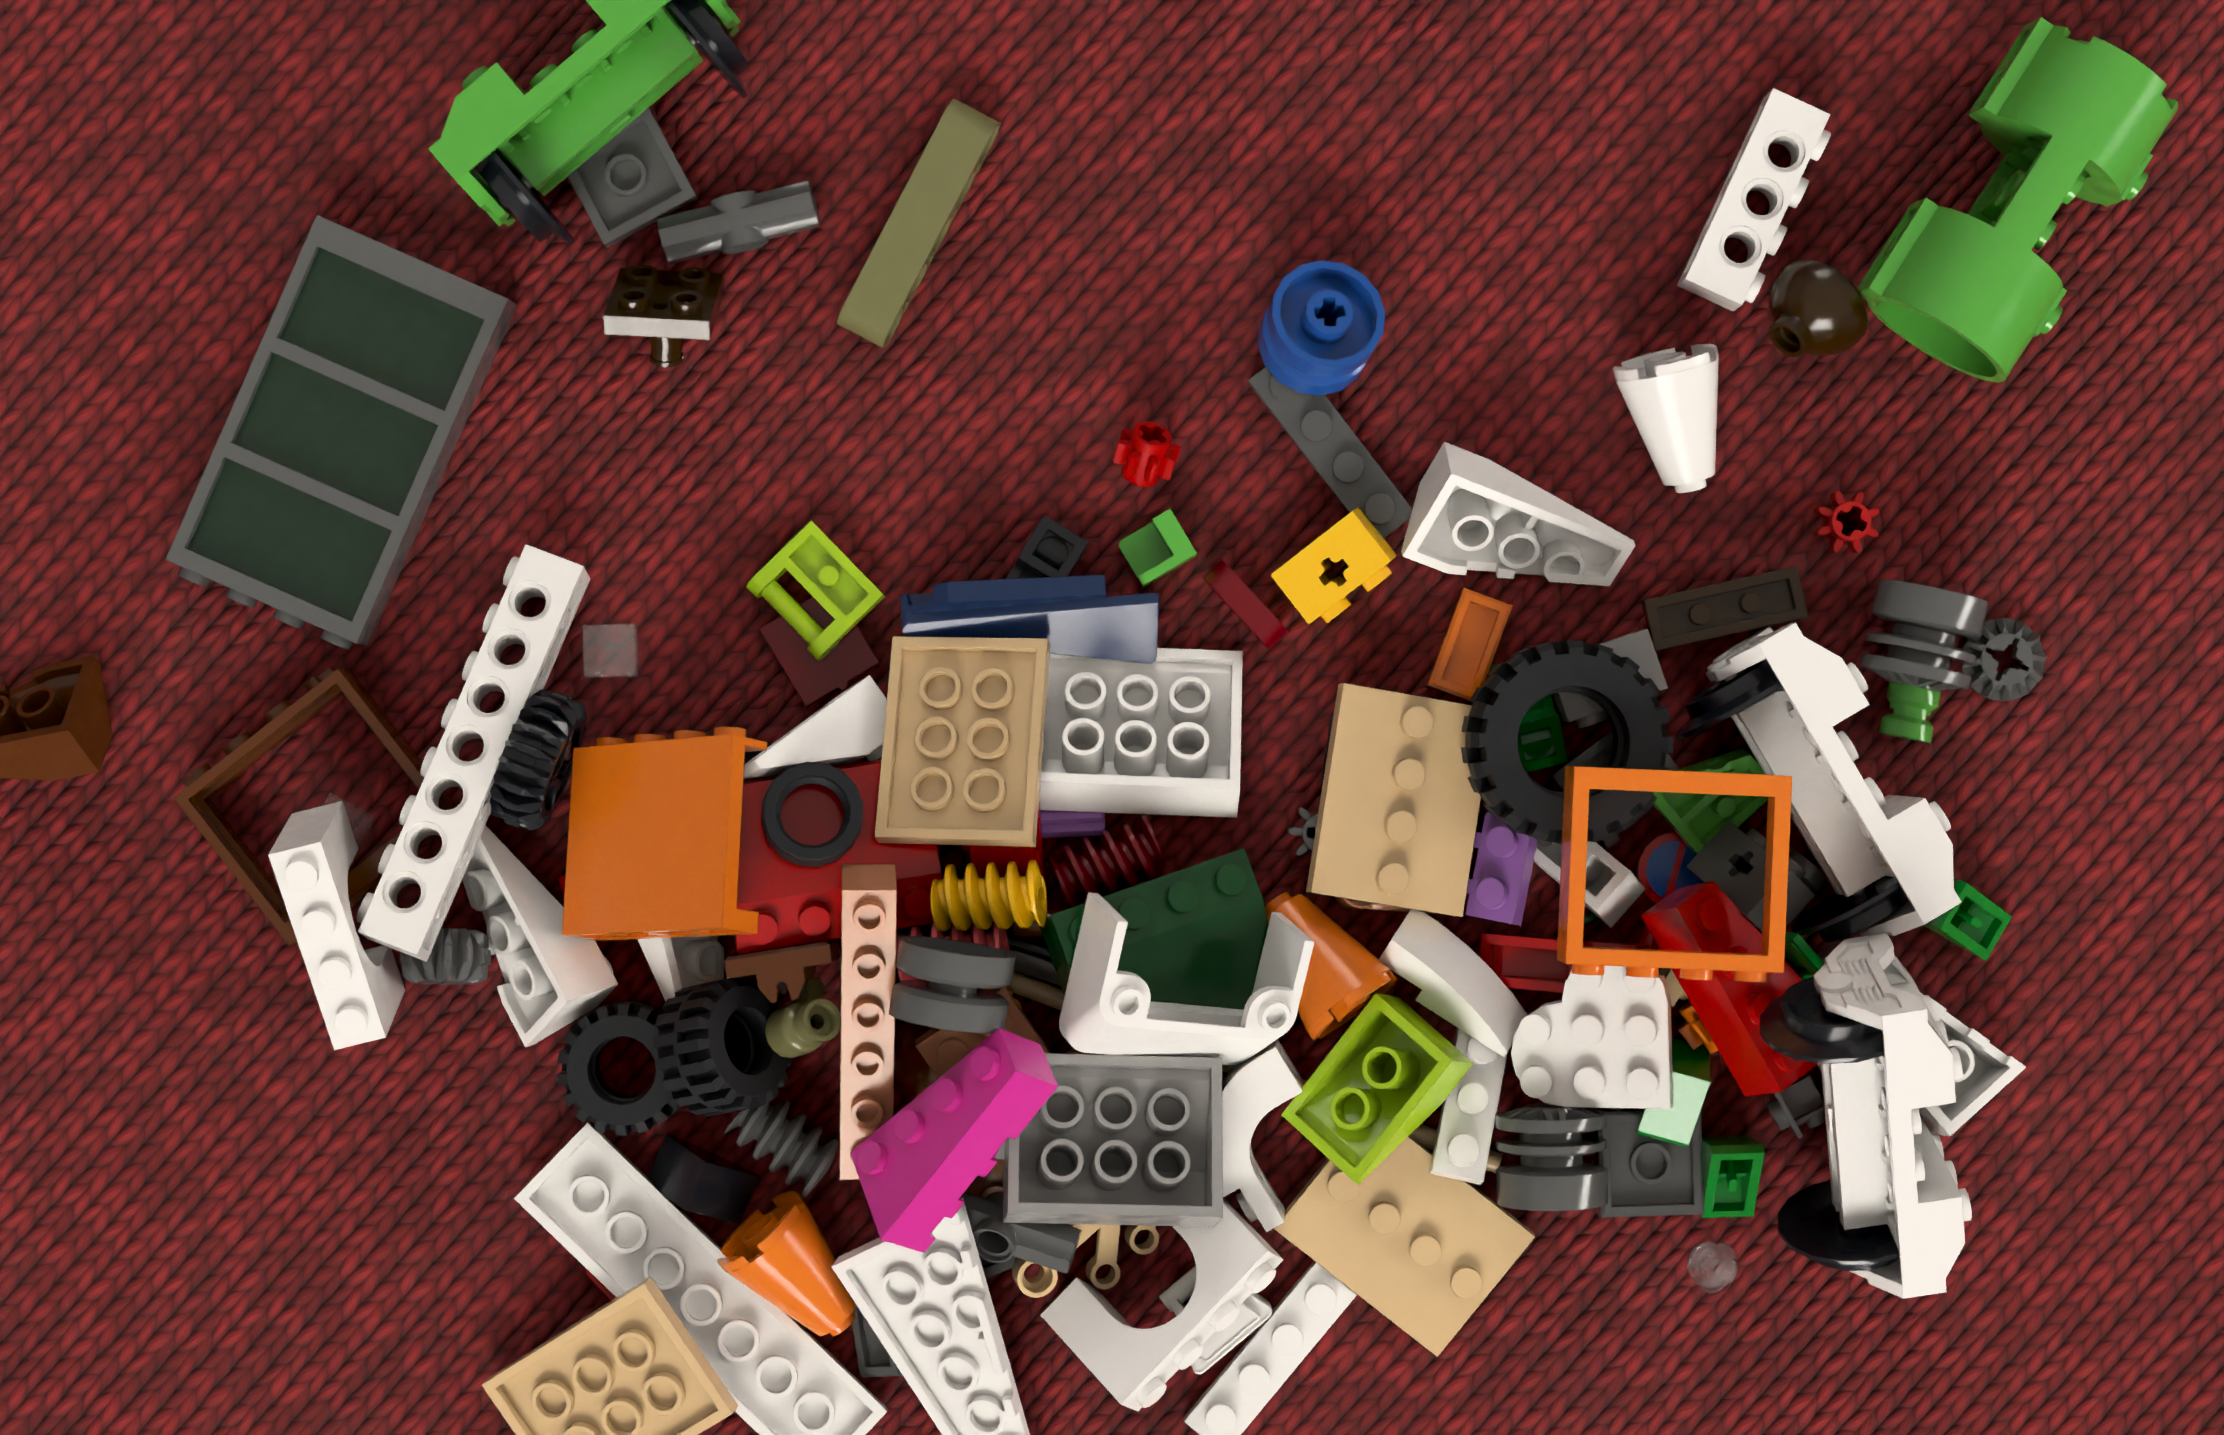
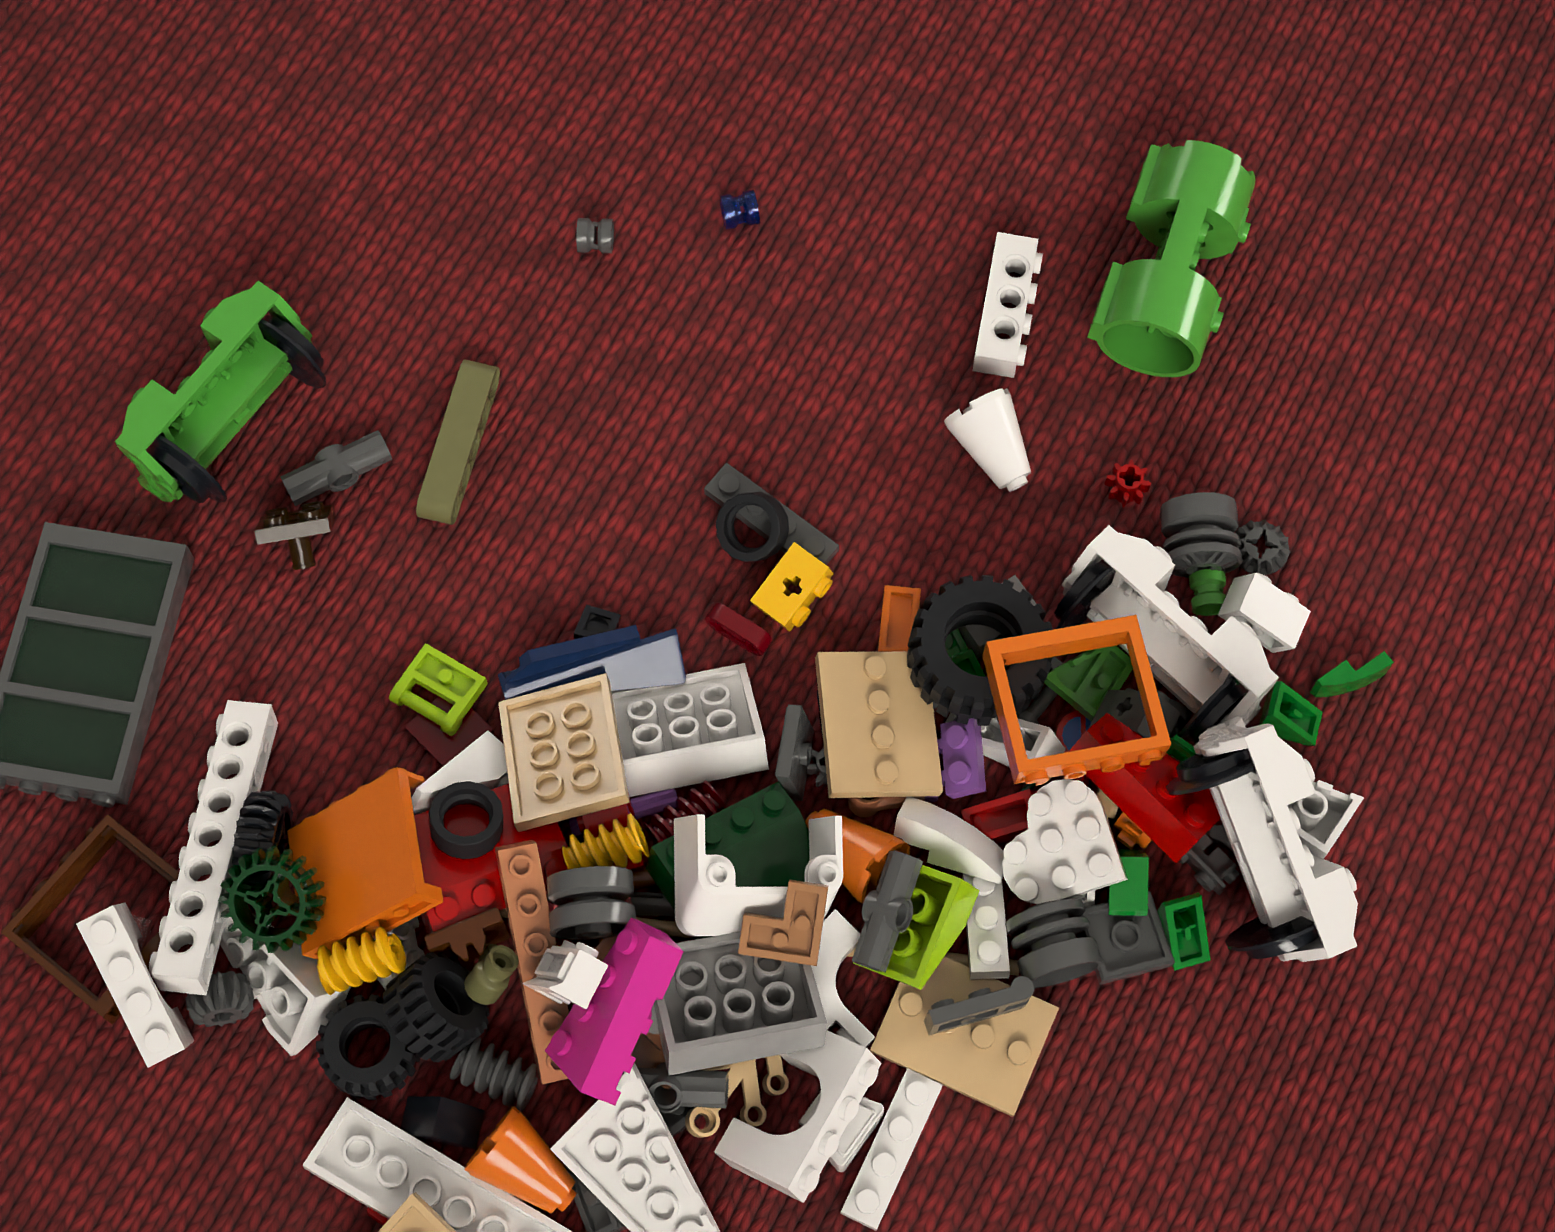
camera: 15 degrees left, 20 degrees down
(564, 874) = (242, 892): none -> dark green gear
(610, 650) = (301, 766): clear tile -> none
(632, 181) = (257, 458): dark grey plate -> none
(635, 970) = (360, 962): none -> yellow piece
(899, 1079) = (568, 974): none -> white window
(1146, 454) = (646, 547): red gear -> none
(1157, 548) = (671, 607): bright green panel -> none
(1205, 1091) = (794, 936): none -> medium nougat plate
(1270, 481) = (728, 538): none -> black tyre
(1277, 811) = (795, 752): none -> dark grey plate
(1321, 327) = (743, 438): blue wheel -> none
(1342, 1072) = (887, 911): none -> dark grey piece
(1432, 1220) = (980, 1006): none -> dark grey plate
(1494, 521) = (889, 537): white wedge -> none
(1703, 1261) = (1192, 999): clear plate -> none
(1725, 608) = (1055, 559): dark brown plate -> none
(1815, 310) = (1066, 354): dark brown piece -> none
(1977, 767) = (1269, 611): none -> white brick
(2056, 881) = (1345, 679): none -> green slope

